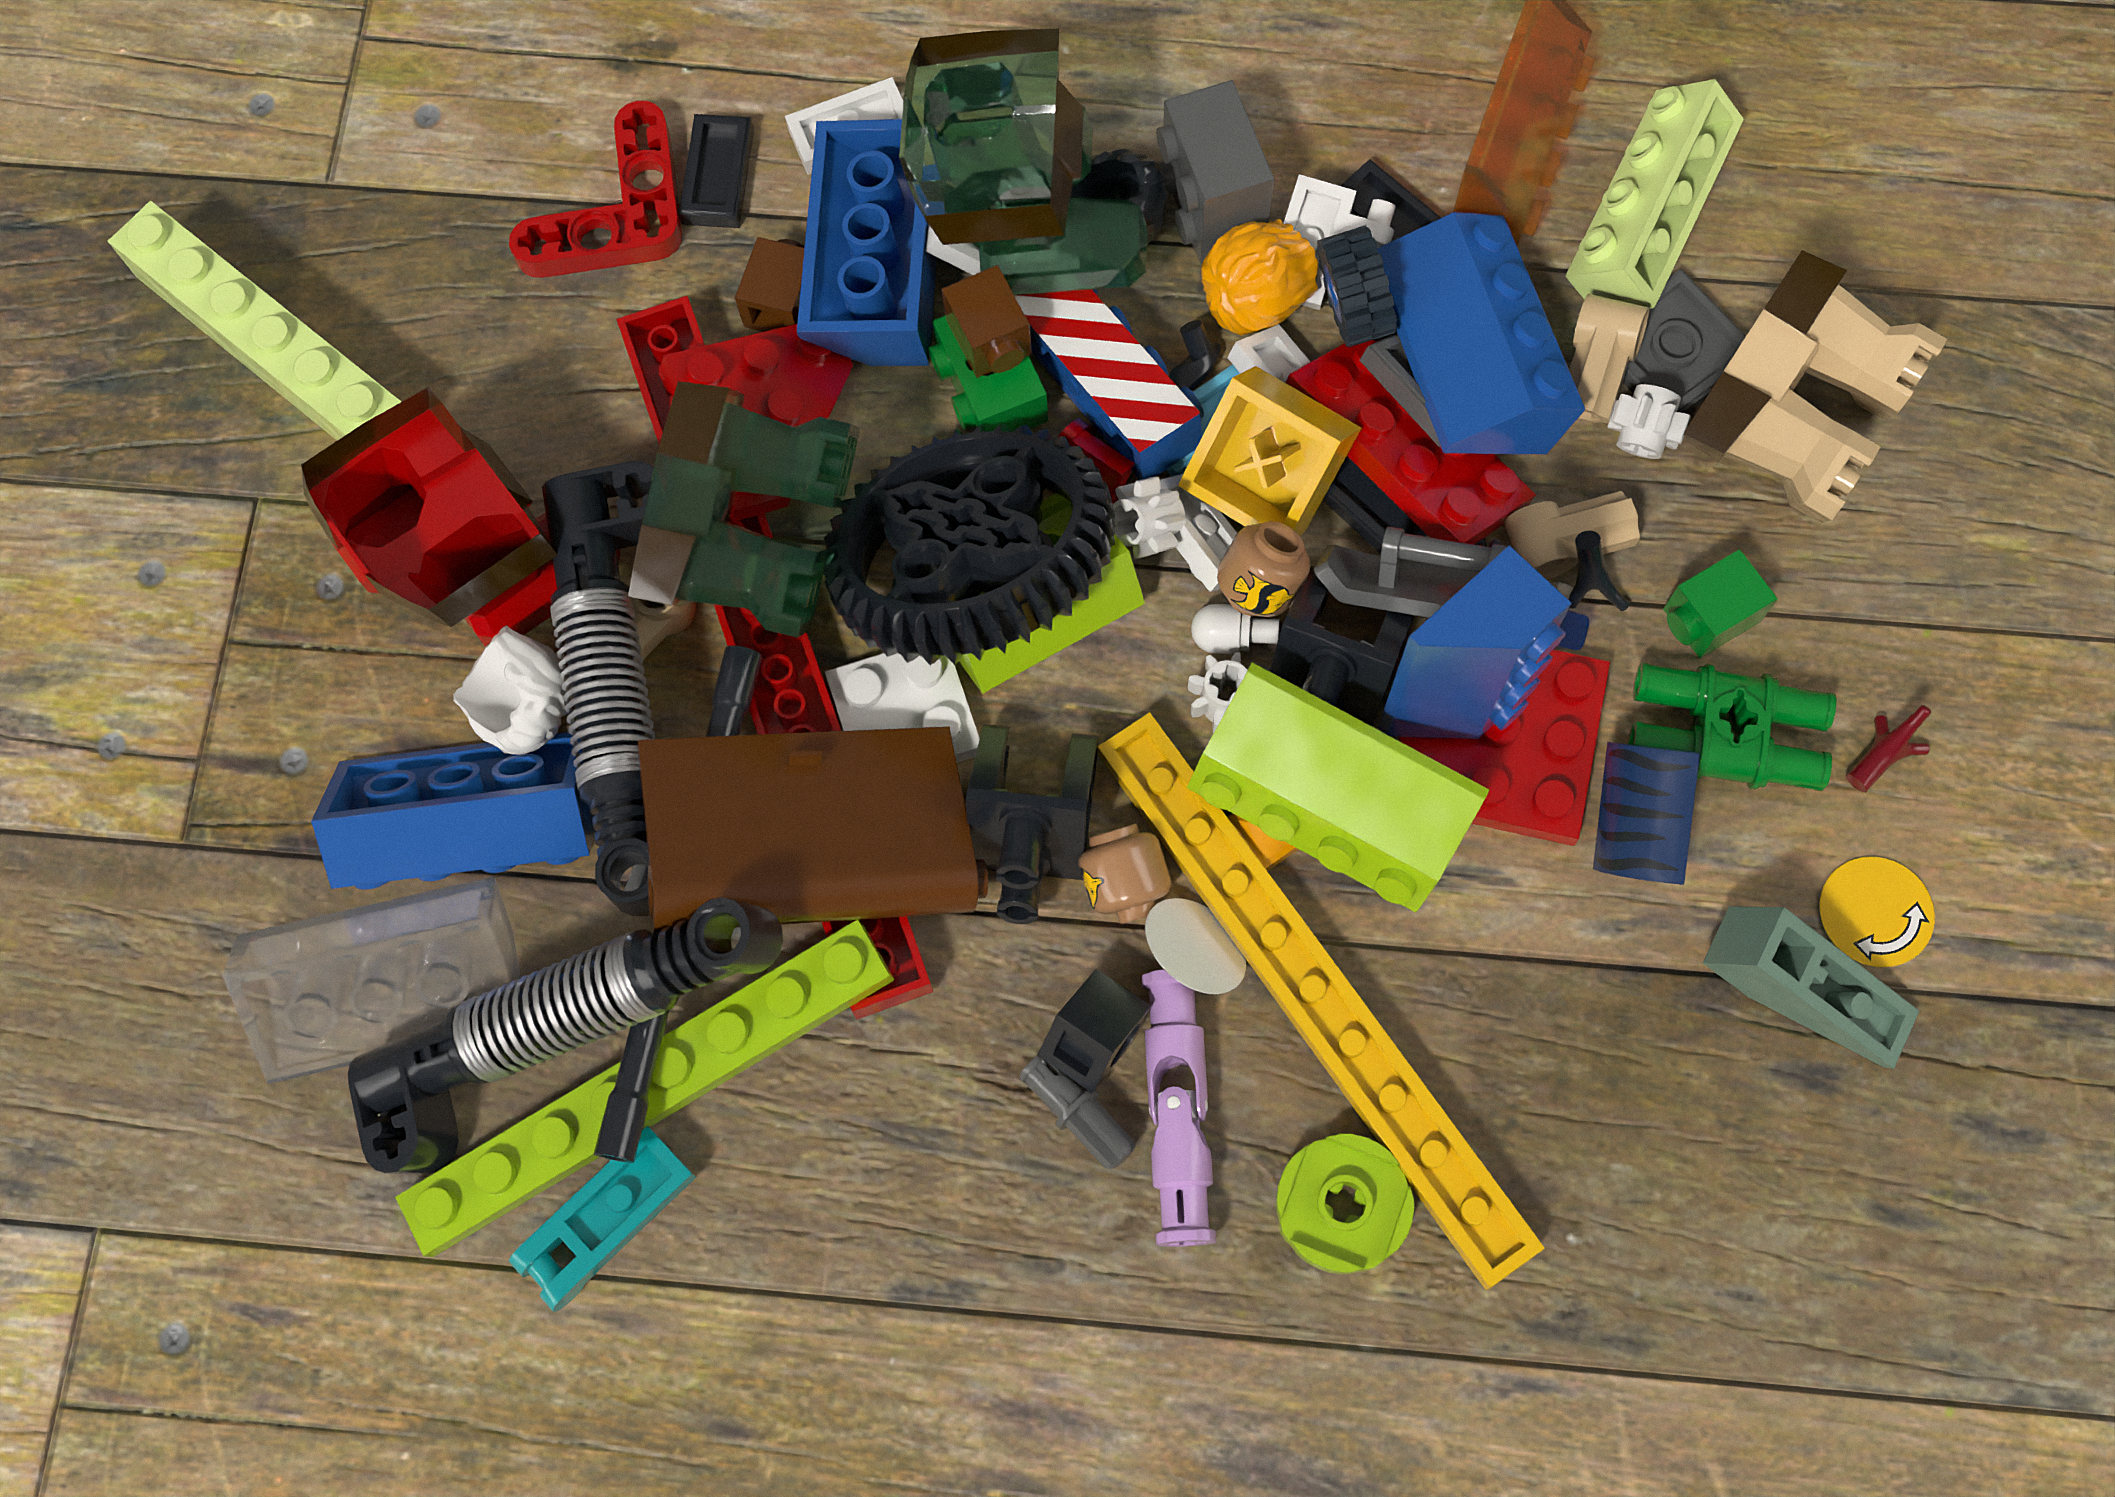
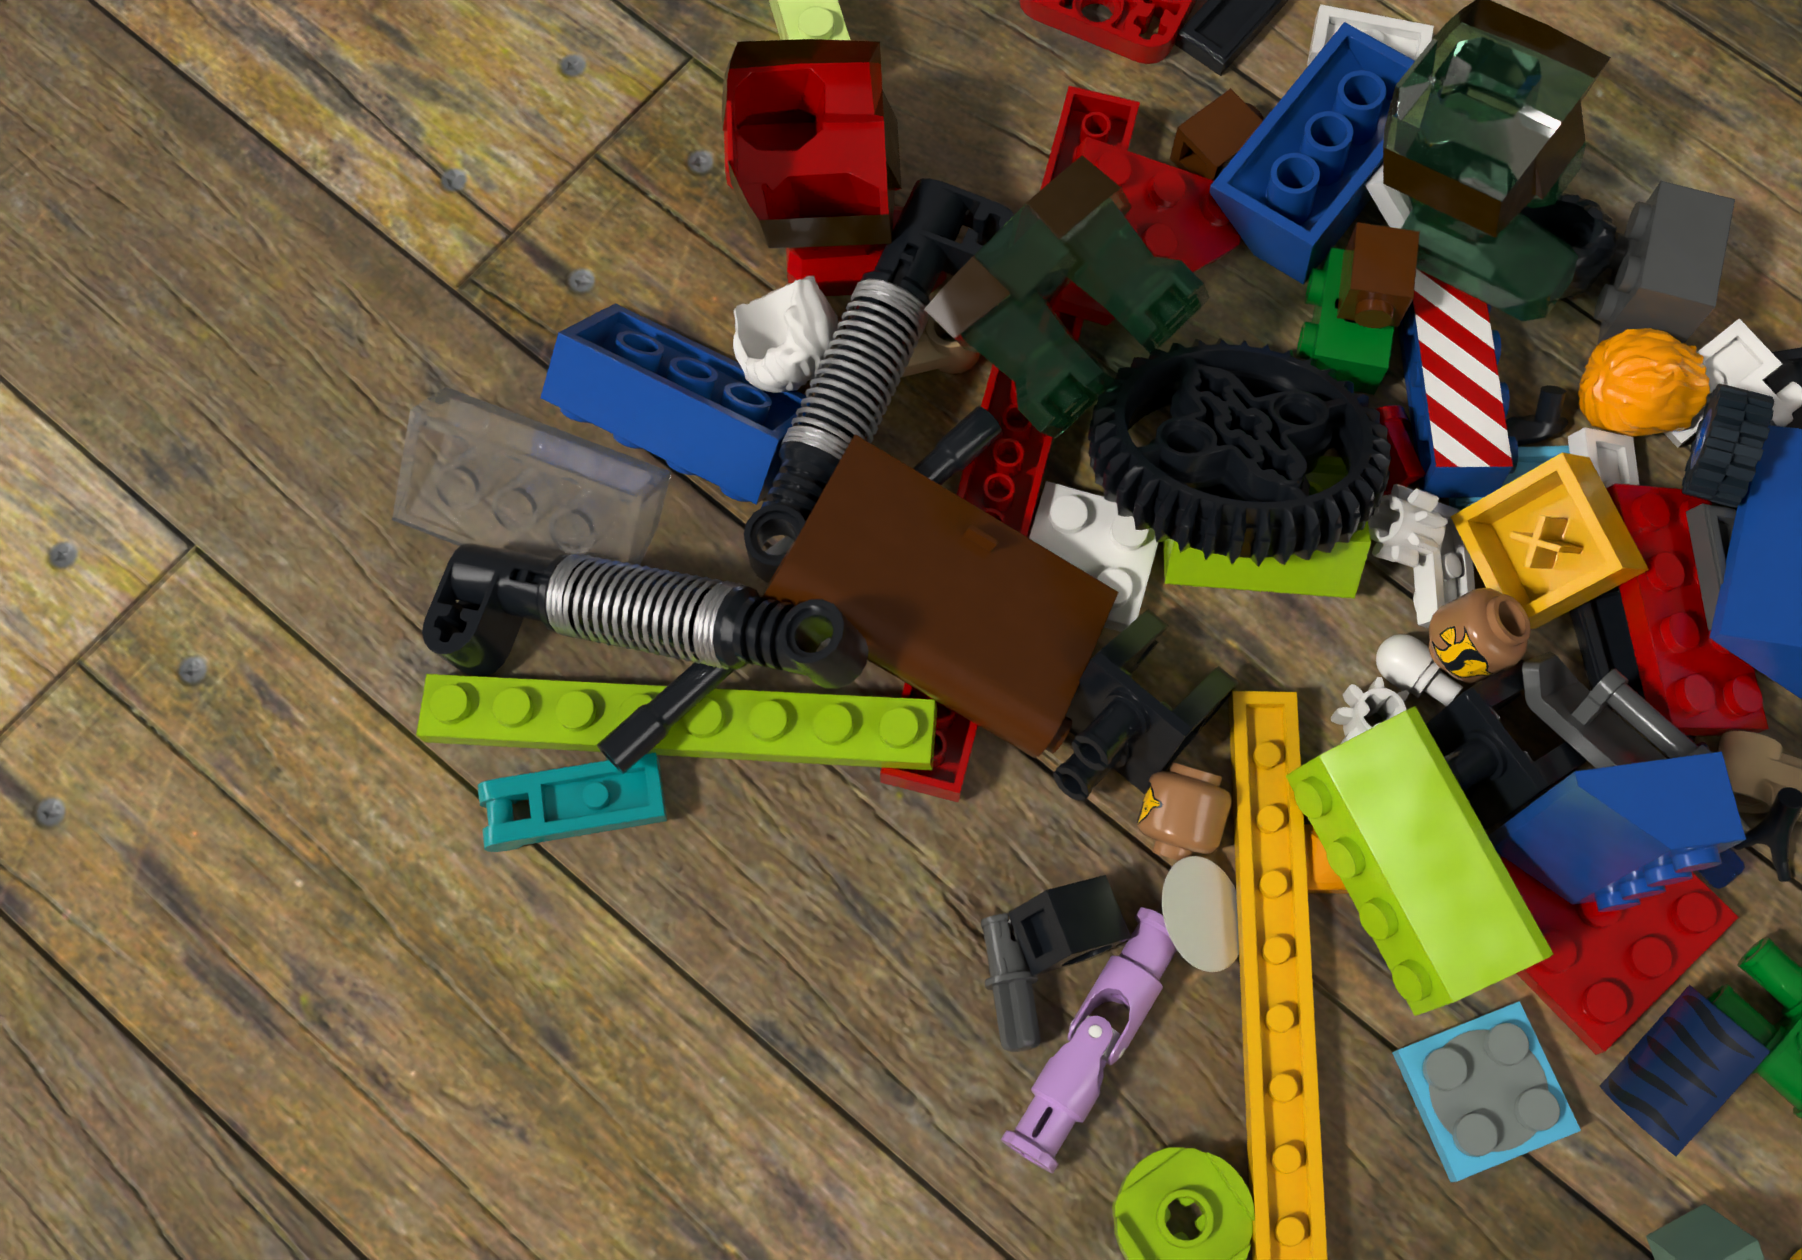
camera: 30 degrees right, 0 degrees up
(1509, 935) = (1486, 1092): none -> light grey piece

